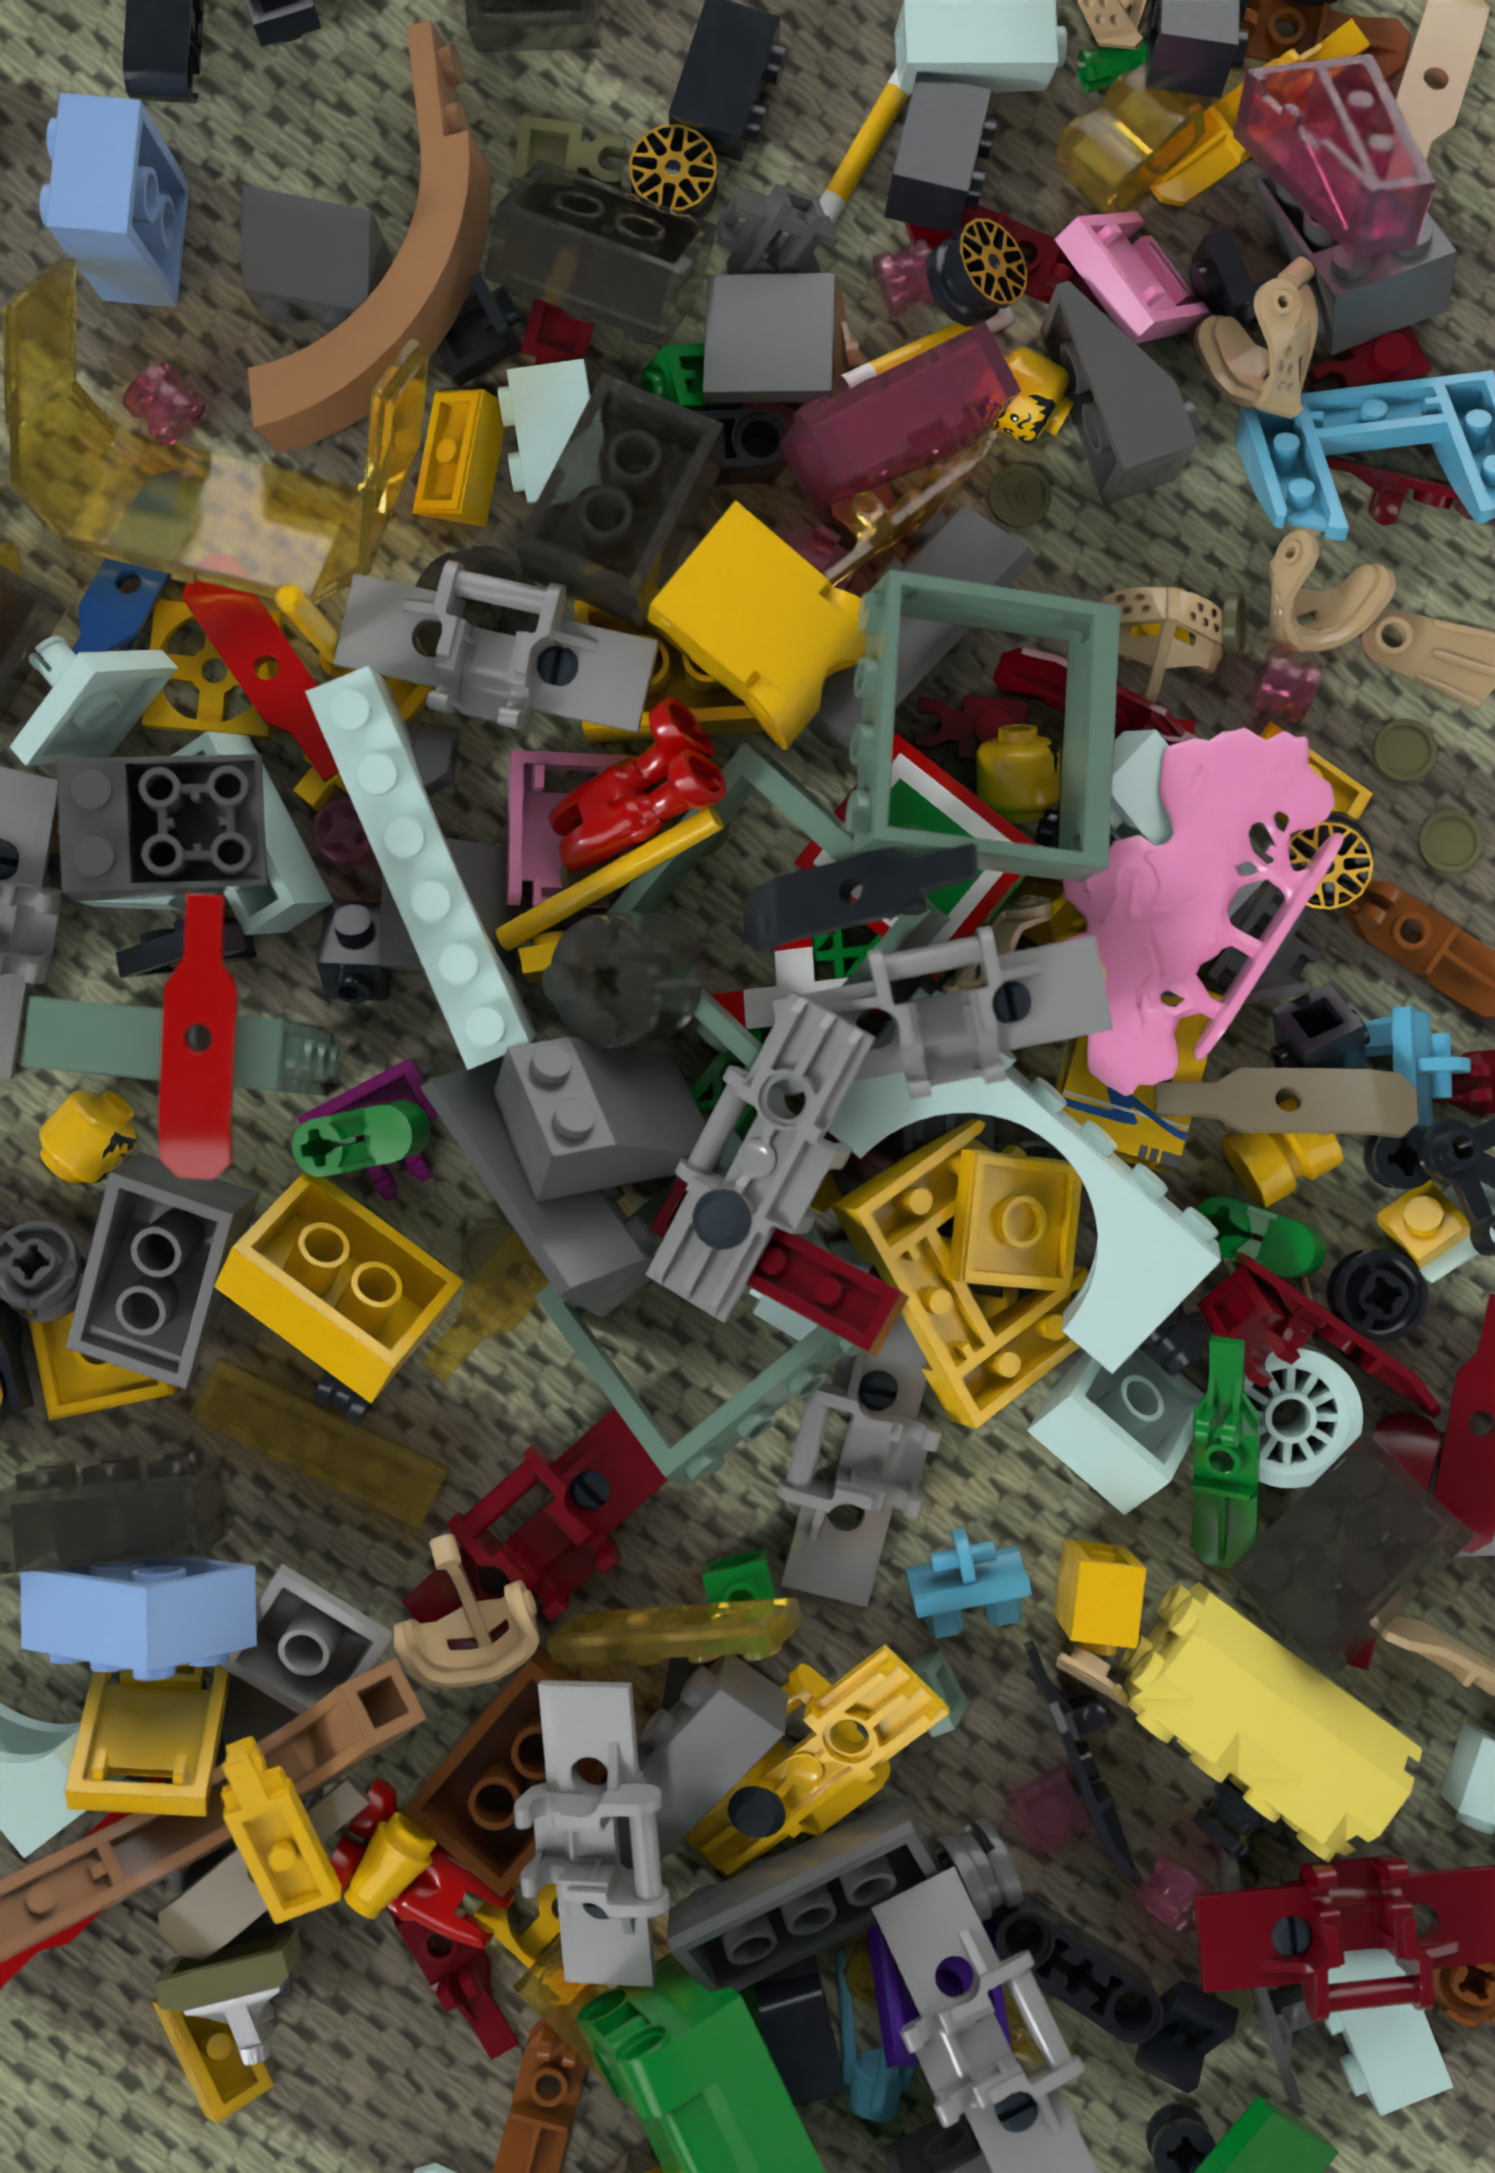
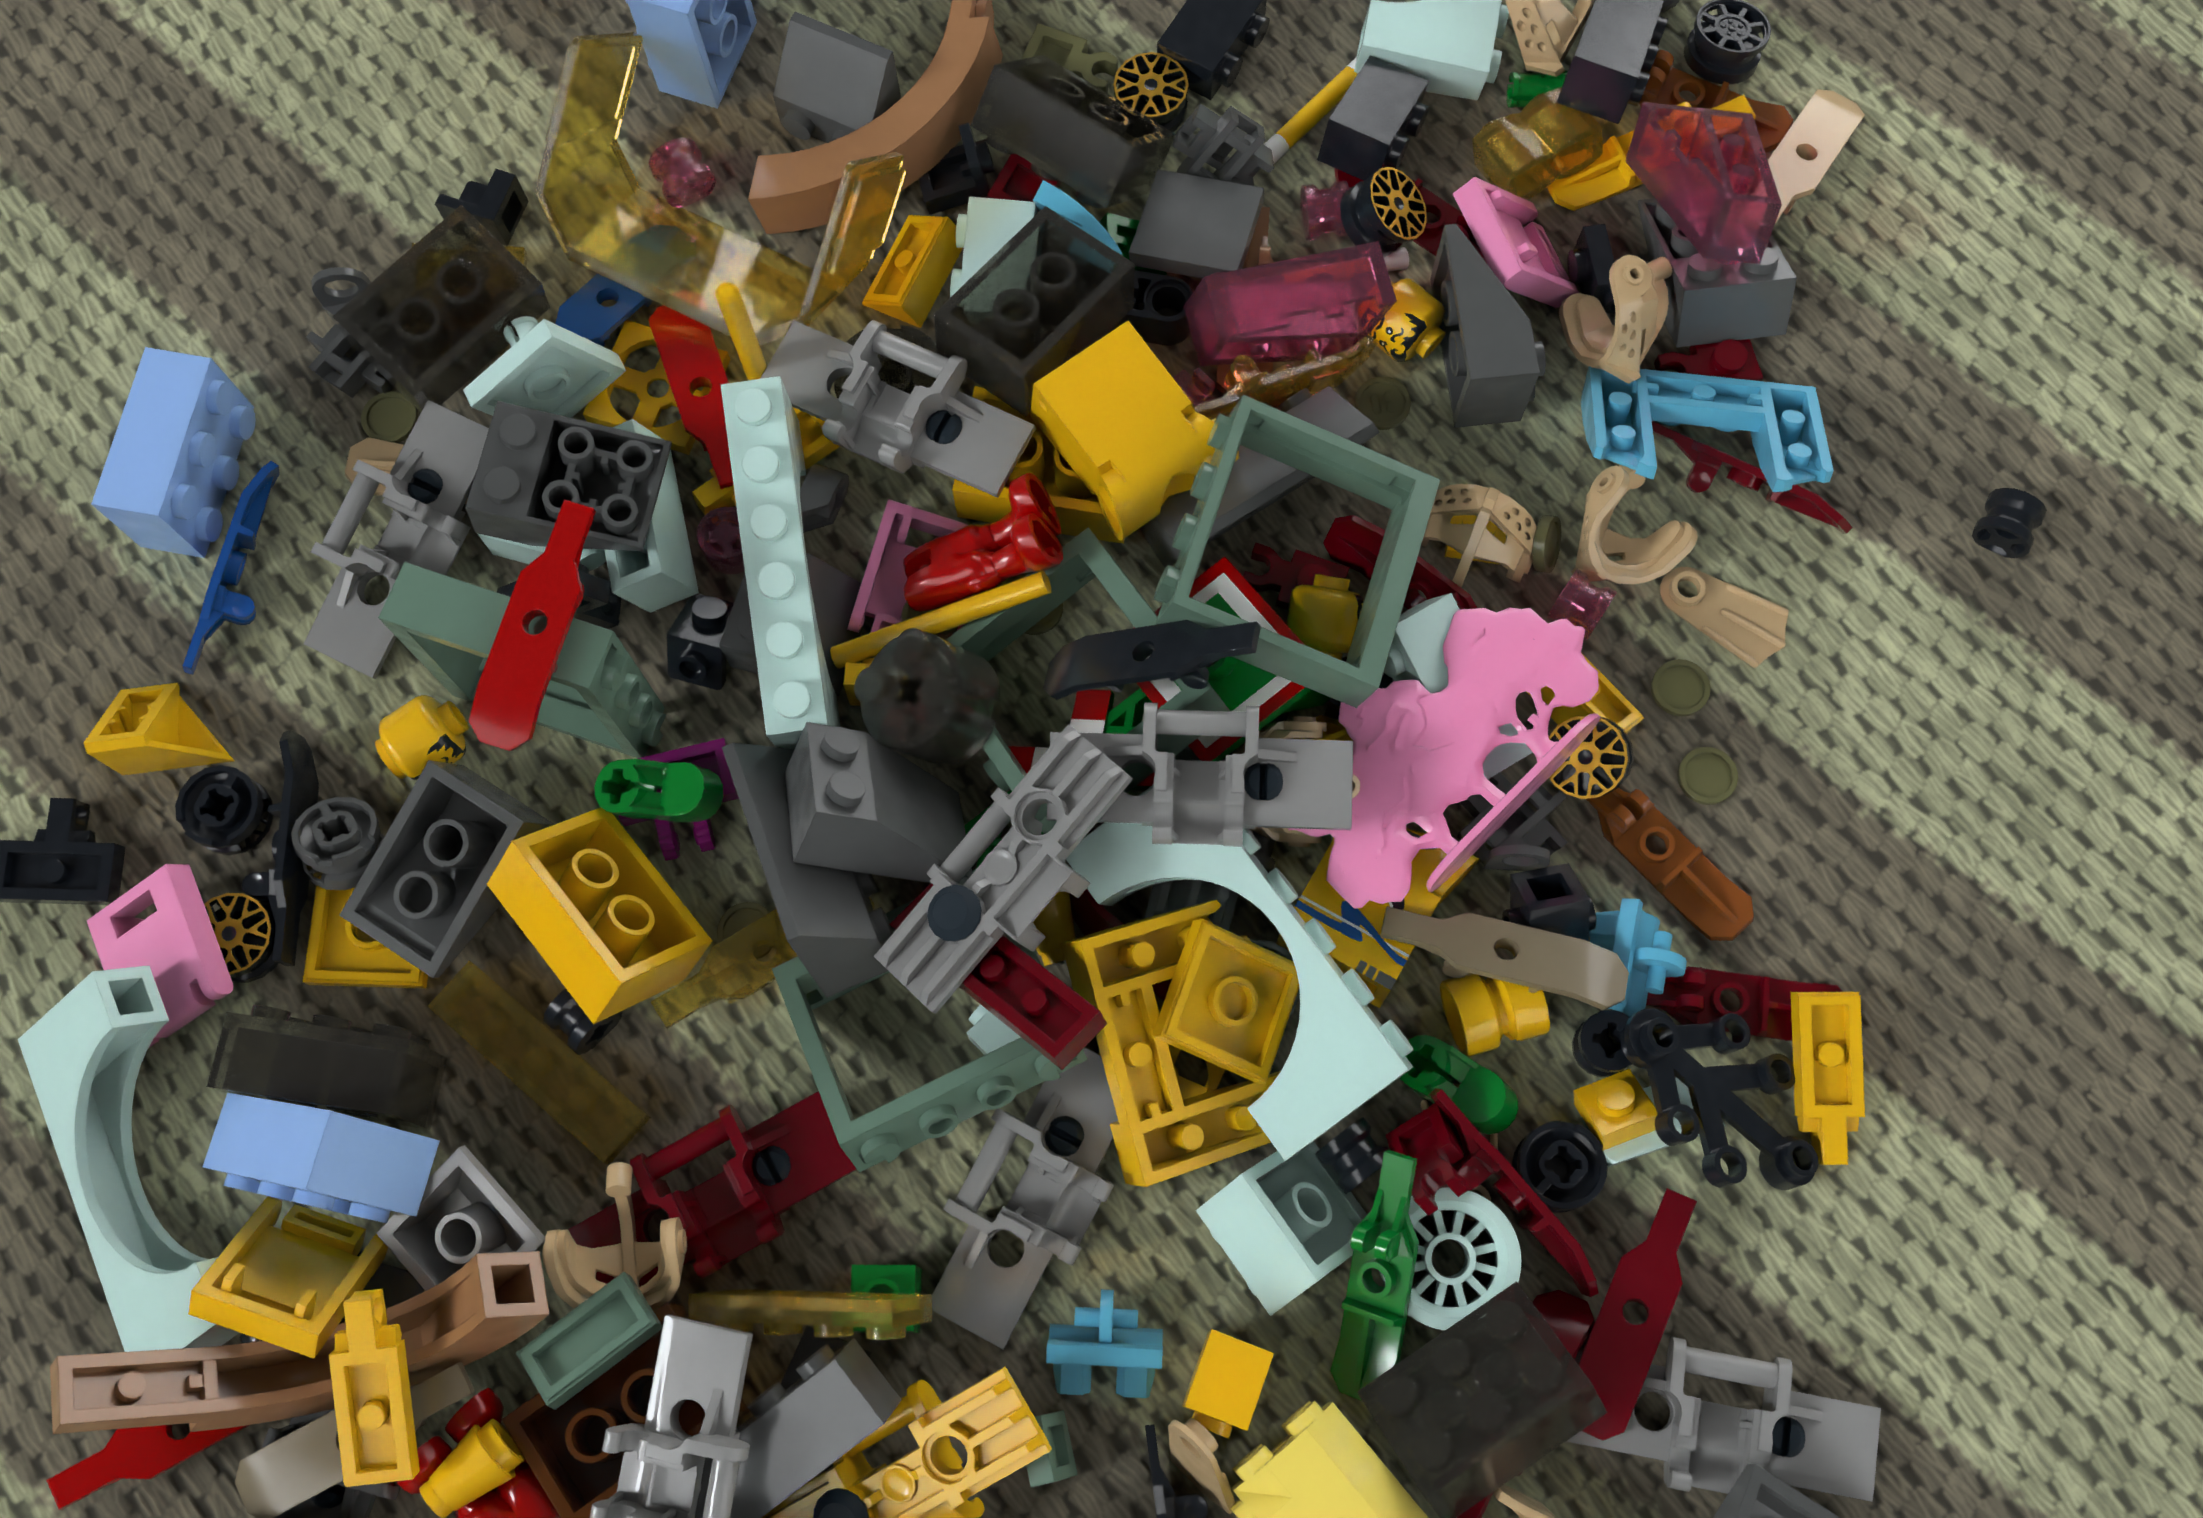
camera: 15 degrees right, 15 degrees down
(466, 1717) = (589, 1340): none -> sand green tile
(622, 360) = (1073, 212): none -> medium azure slope

